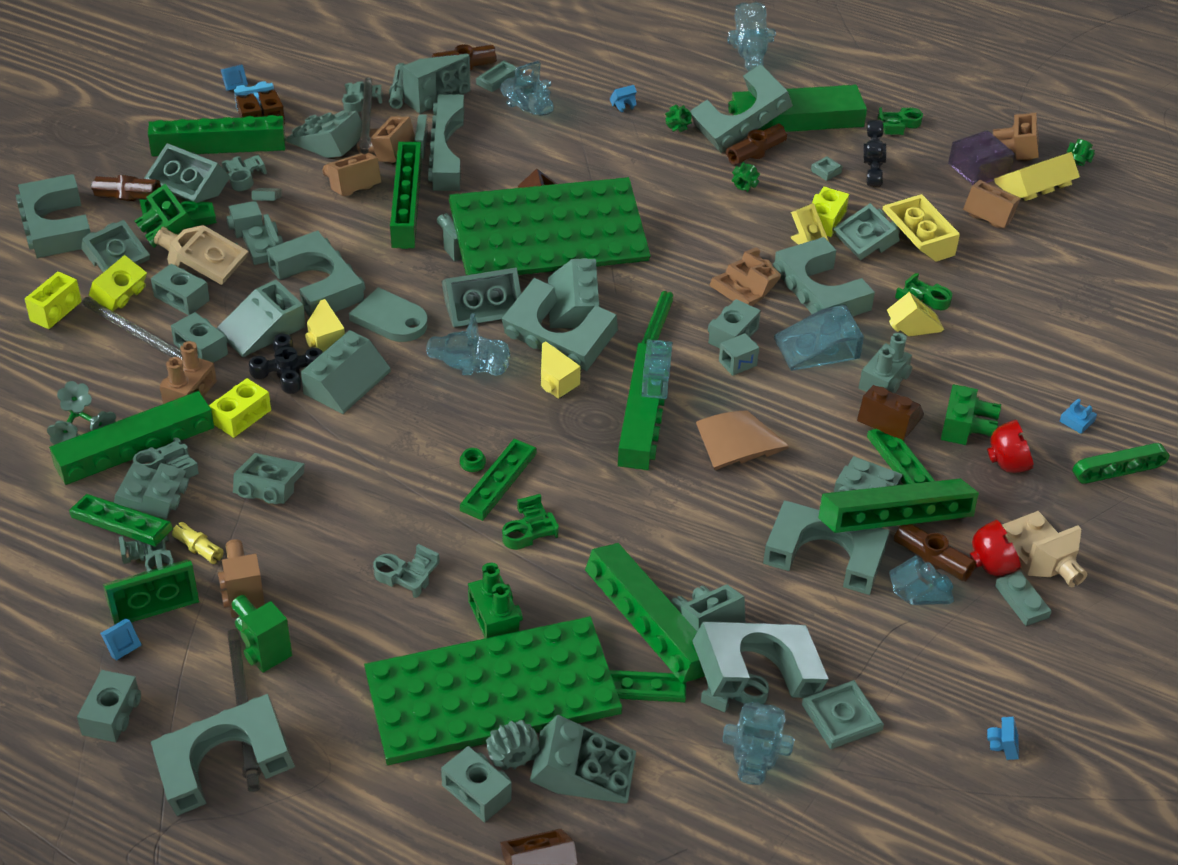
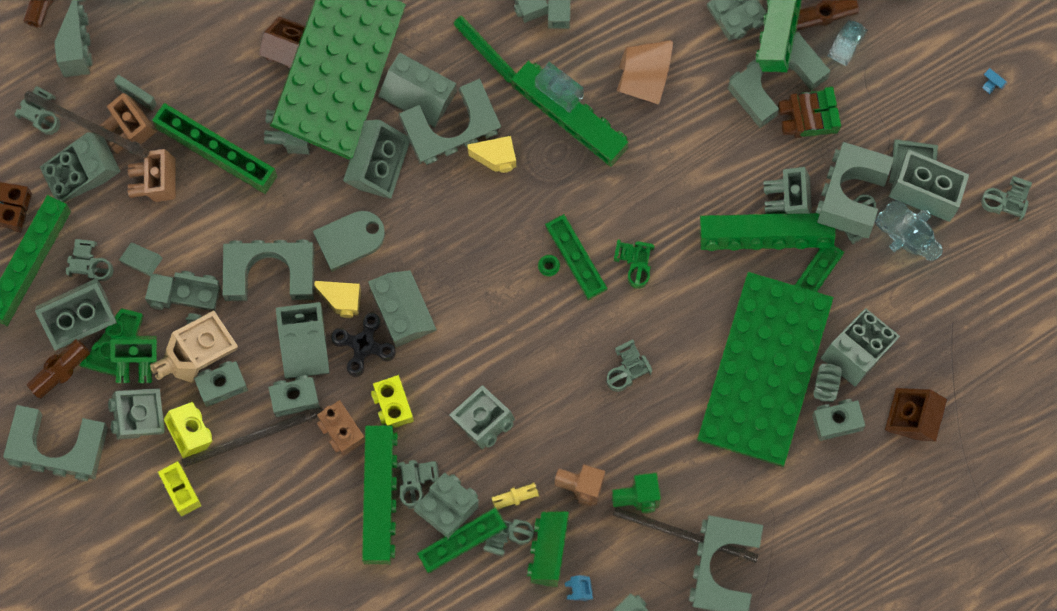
camera: 55 degrees left, 30 degrees up
(74, 399) = (338, 522): sand green plant -> none
(397, 88) = (64, 83): sand green pin -> none
(443, 164) = (194, 97): sand green arch -> none
(470, 351) = (438, 204): clear light blue piece -> none
(493, 603) = (701, 329): green brick -> none
(814, 590) = (810, 113): none -> hips
(825, 729) = (929, 185): none -> sand green slope
(886, 835) = (1013, 203): none -> sand green piece

